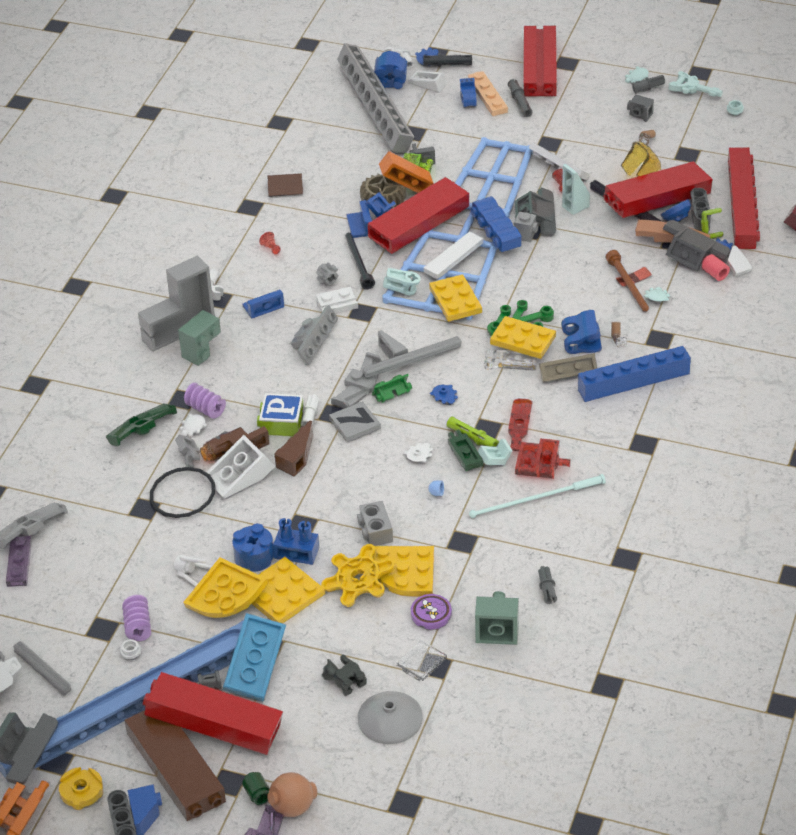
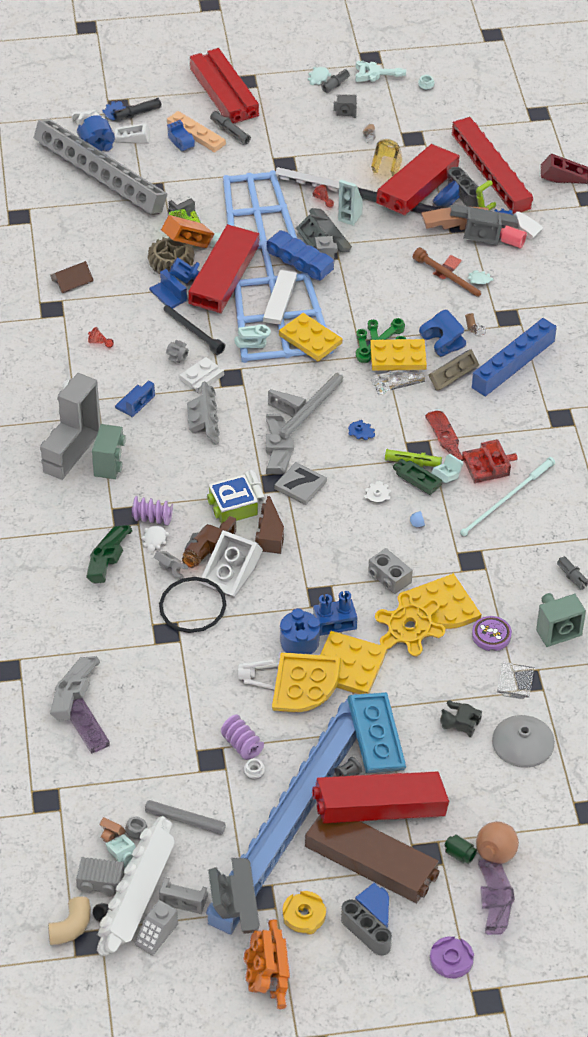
camera: 30 degrees left, 5 degrees up
(383, 389) = (308, 445): green hinge -> none

